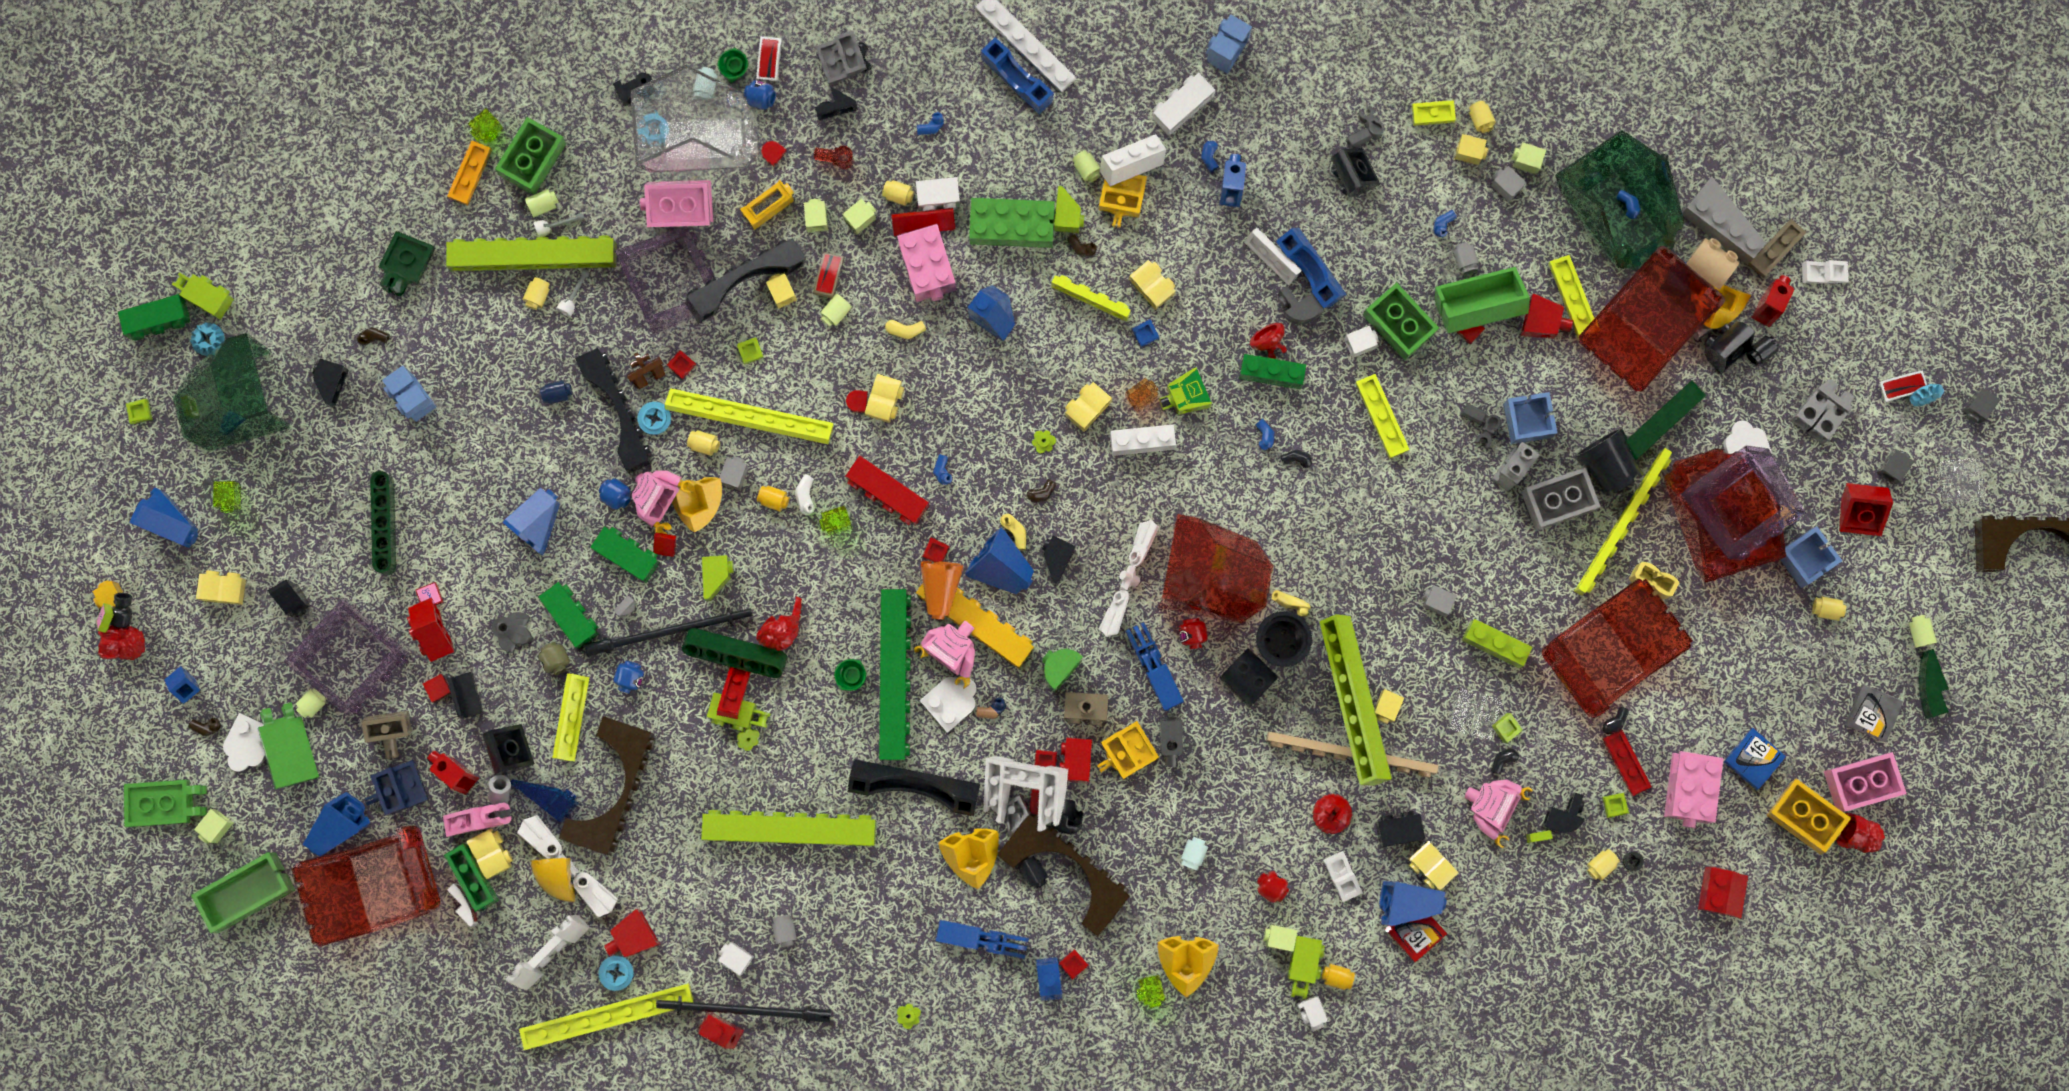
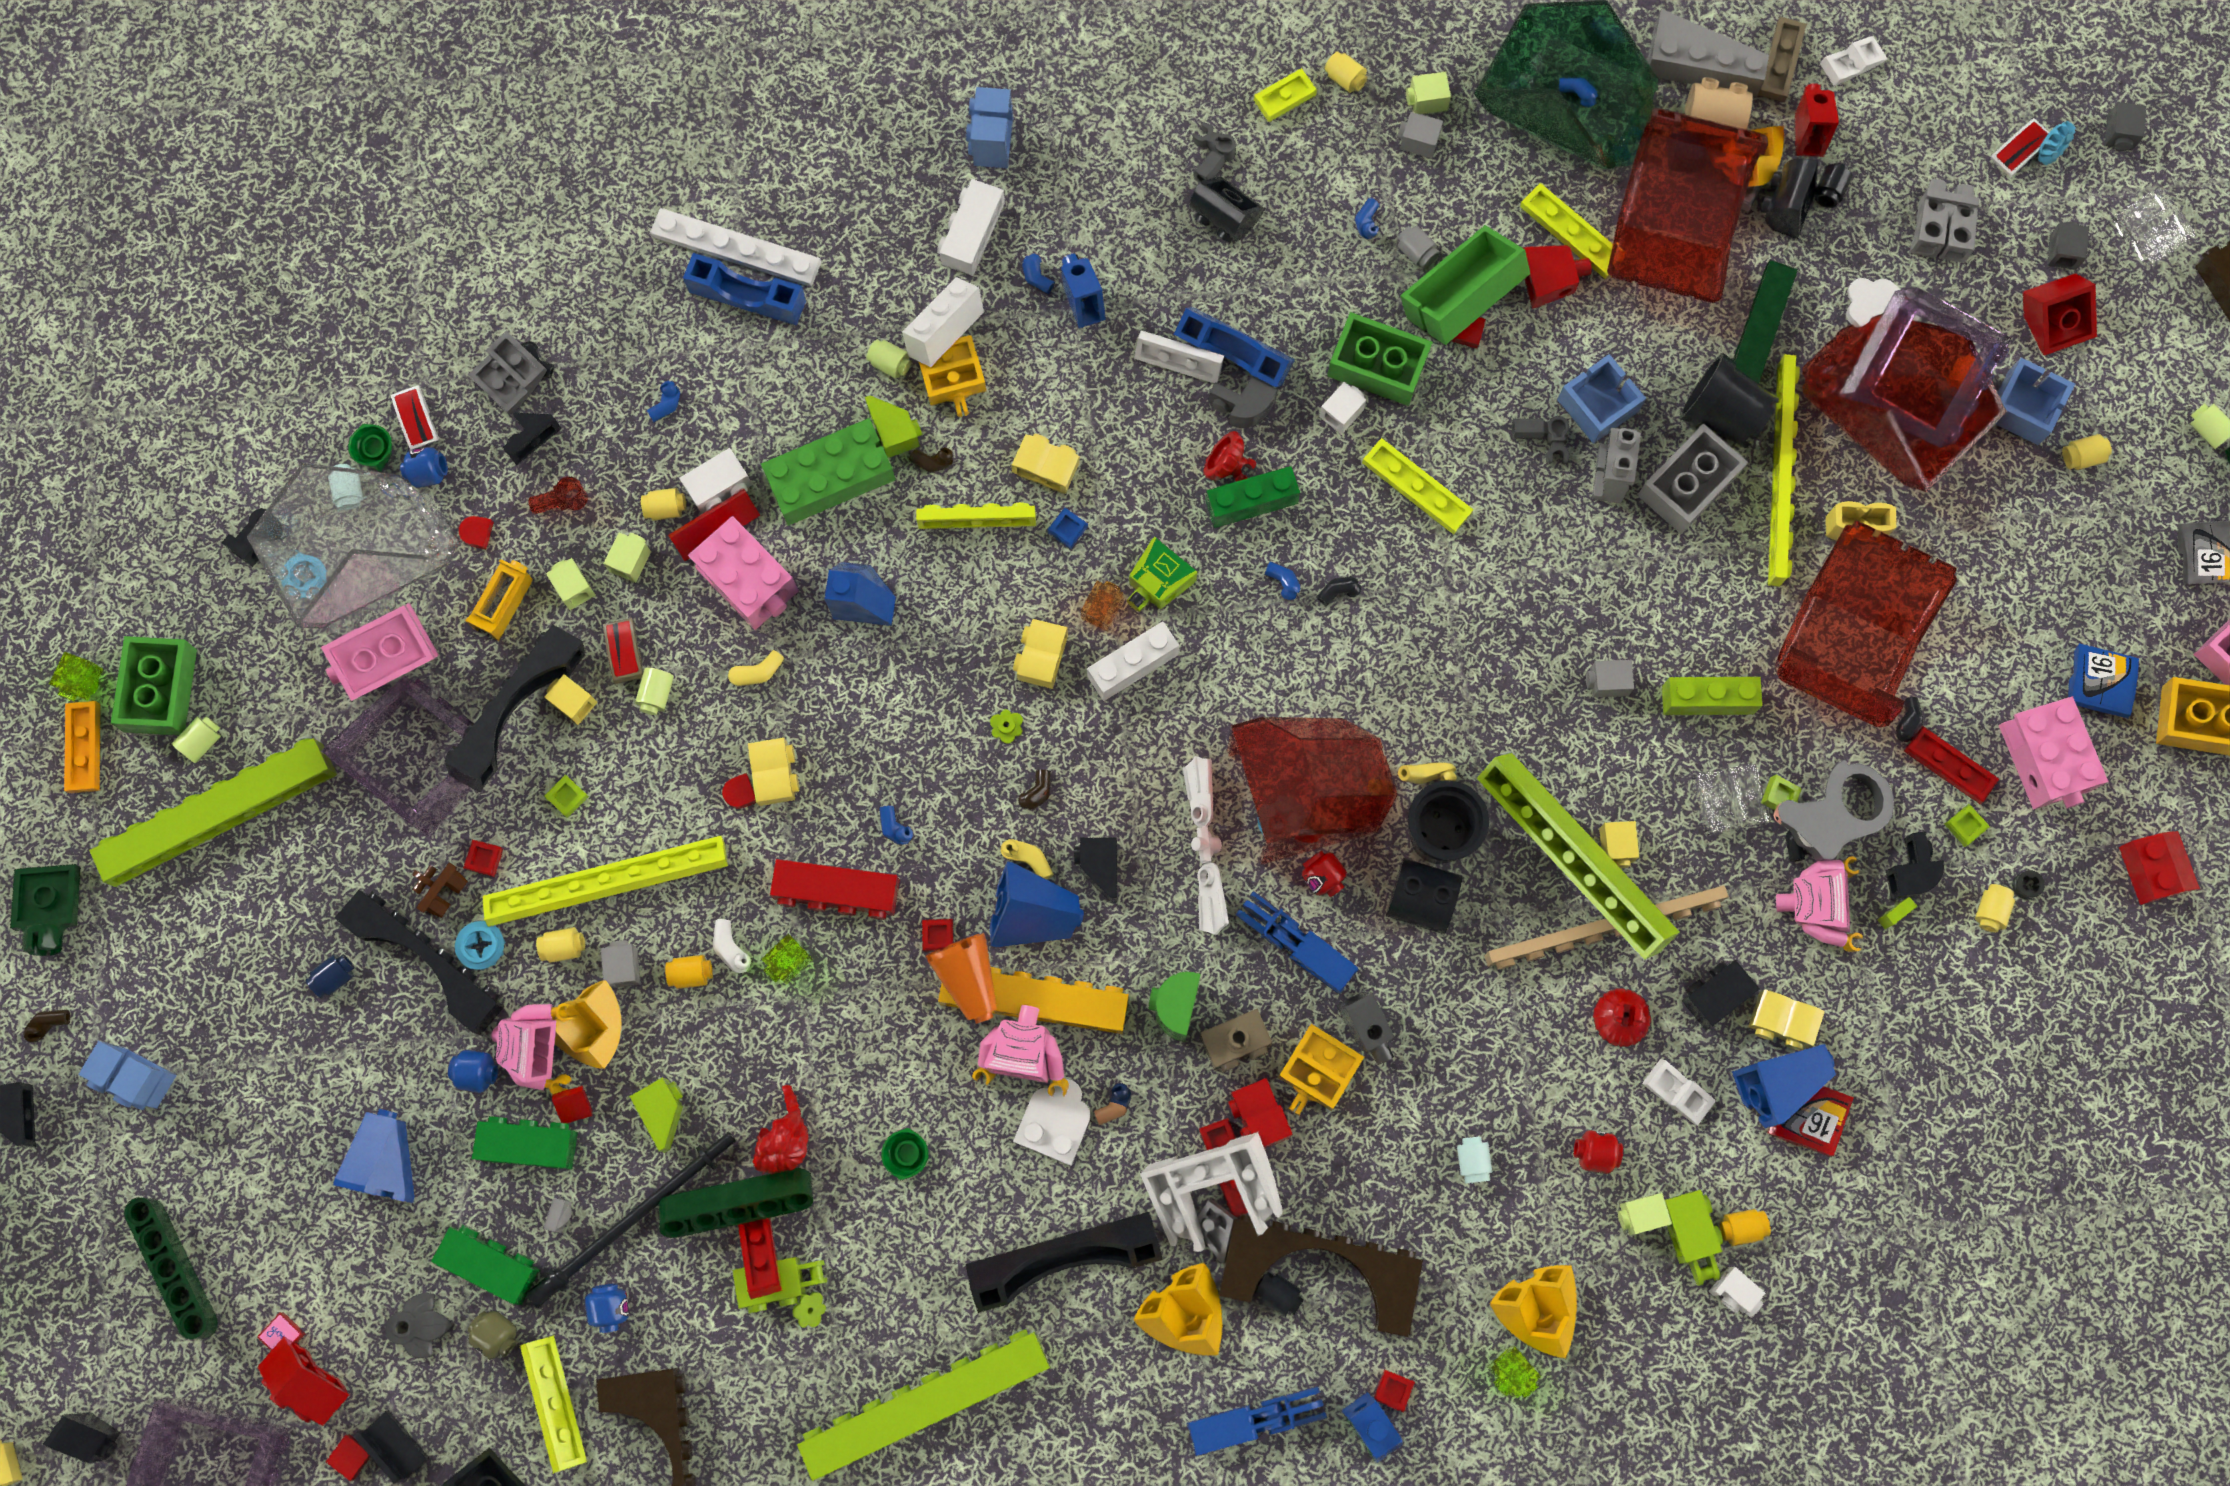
camera: 25 degrees left, 5 degrees down
(536, 293) = (244, 859): light yellow brick -> none
(543, 227) = (215, 770): hinge -> none
(567, 306) = (294, 857): hinge -> none
(893, 675) = (962, 1125): green brick -> none
(1070, 819) = (1293, 1198): black hair -> none
(1471, 149) = (1354, 116): light yellow brick -> none
(1525, 761) = (1827, 824): none -> animal

